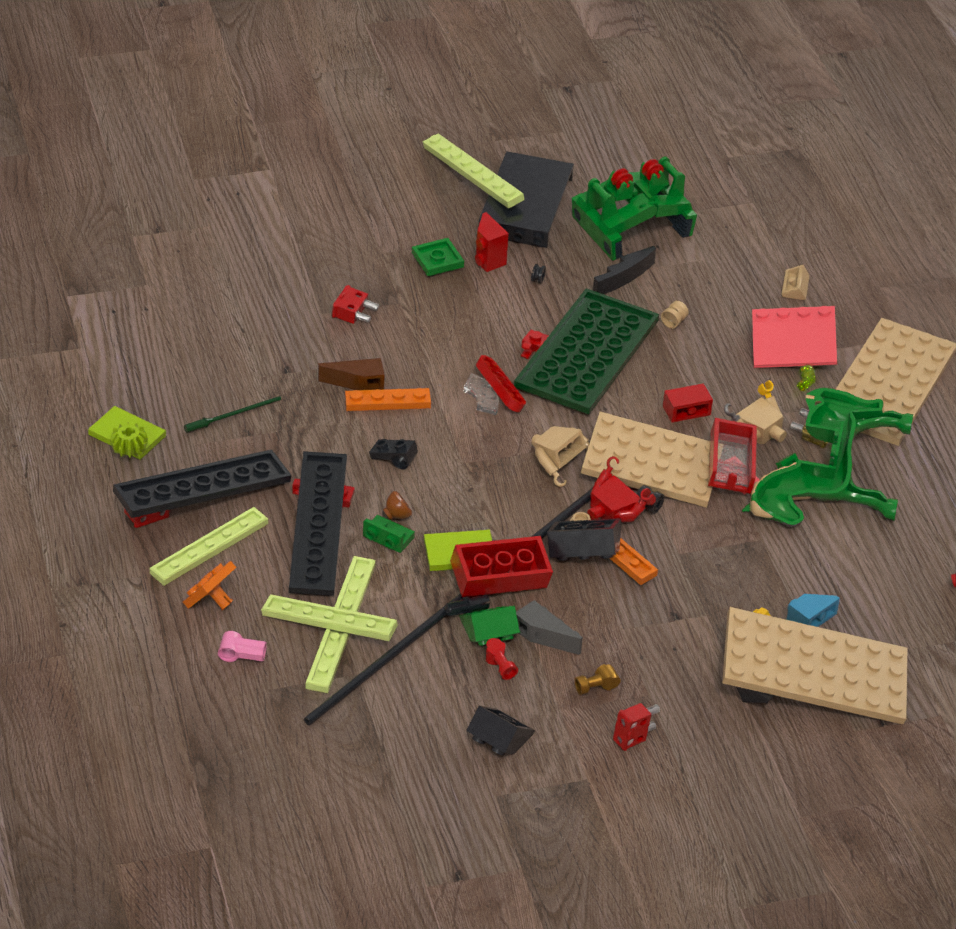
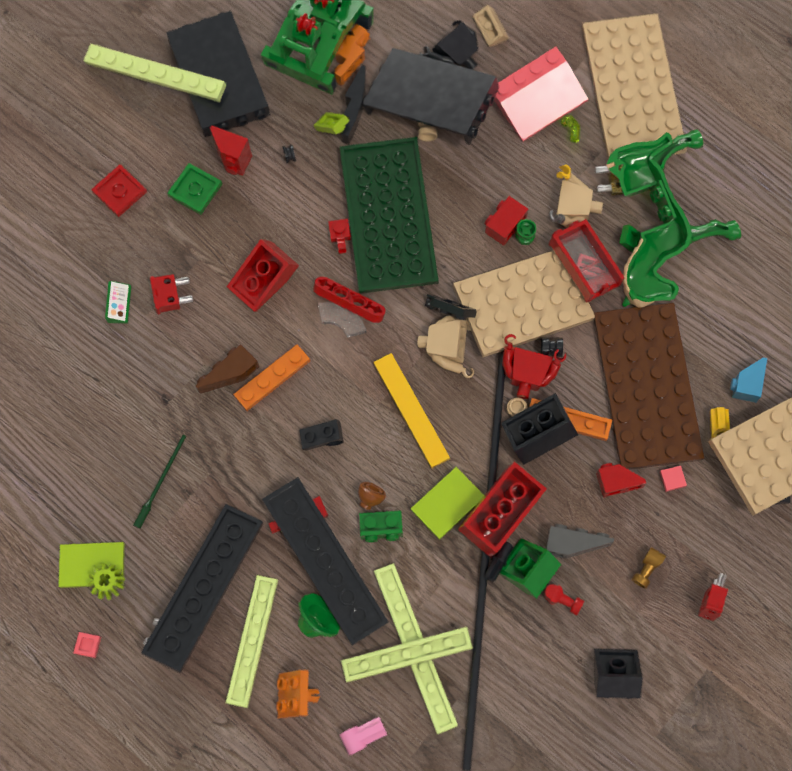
camera: 30 degrees left, 30 degrees up
(75, 477) = (87, 645): none -> coral tile
(275, 551) = (316, 617): none -> green hat
(305, 291) = (118, 302): none -> slope
(374, 230) = (119, 190): none -> red tile
(442, 331) = (262, 274): none -> red slope
(486, 479) = (411, 411): none -> yellow tile
(582, 422) = (450, 307): none -> black hinge
(592, 269) = (331, 123): none -> lime plate
(625, 611) = (618, 480): none -> red slope
(653, 236) = (350, 53): none -> orange plate
(677, 639) = (673, 478): none -> coral tile
(697, 419) = (525, 227): none -> green wheel
(698, 287) = (432, 93): none -> black panel
(713, 570) = (648, 386): none -> reddish brown plate
(747, 276) = (456, 47): none -> black torso

